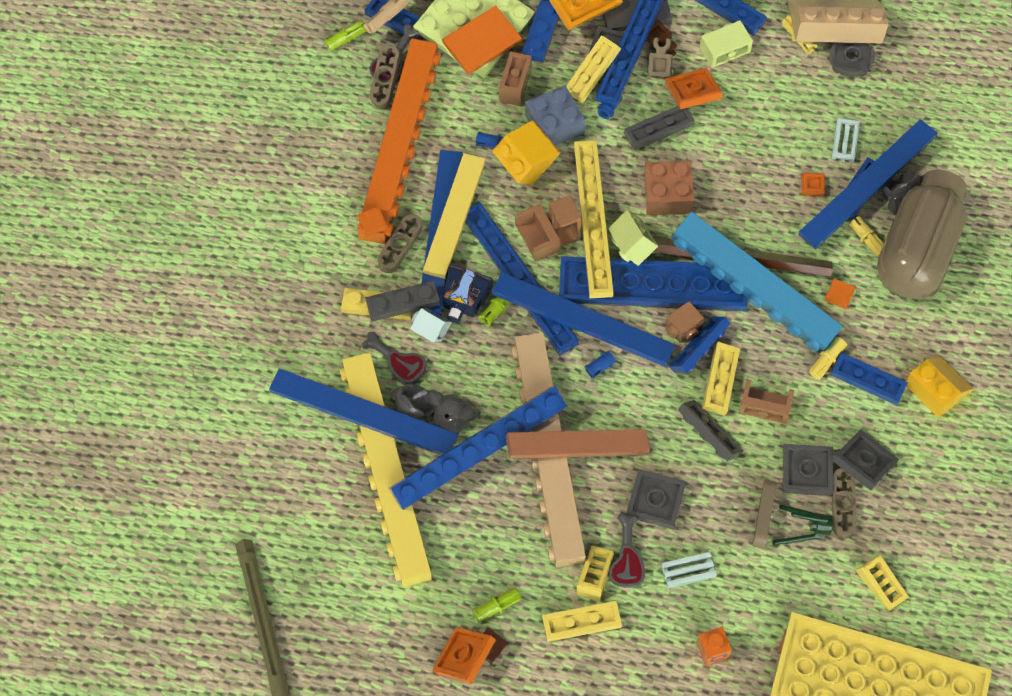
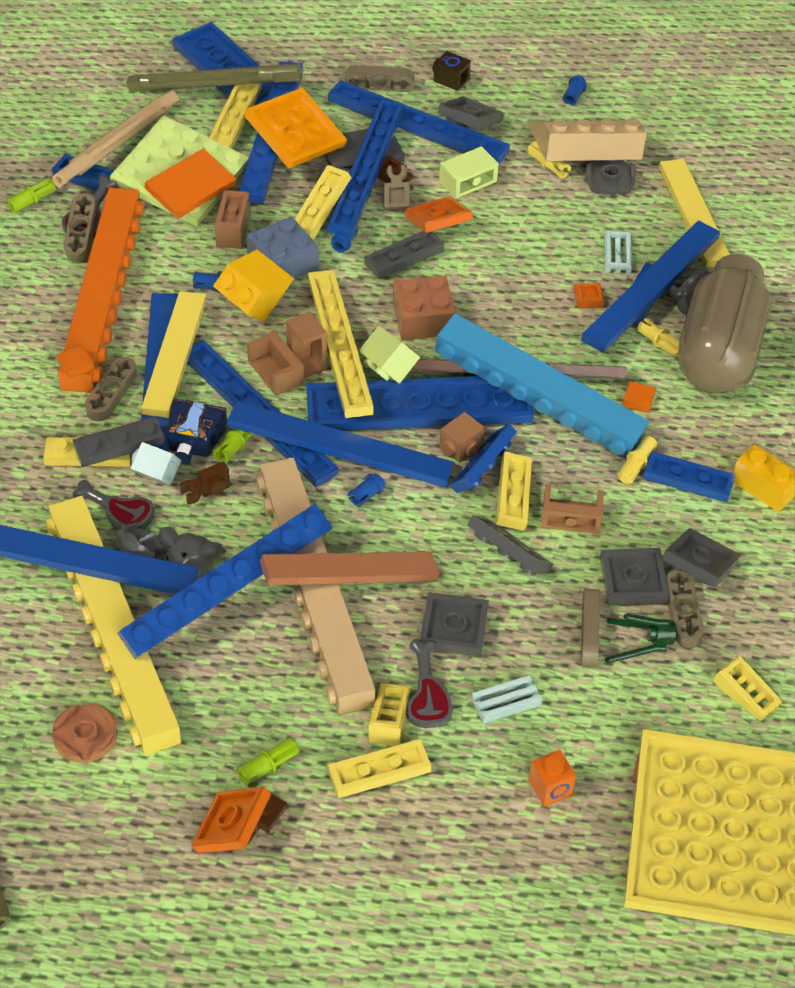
camera: 10 degrees left, 15 degrees down
(355, 570) = (81, 741): none -> nougat tile
(475, 344) = (209, 481): none -> reddish brown plate
(920, 98) = (691, 205): none -> light yellow tile

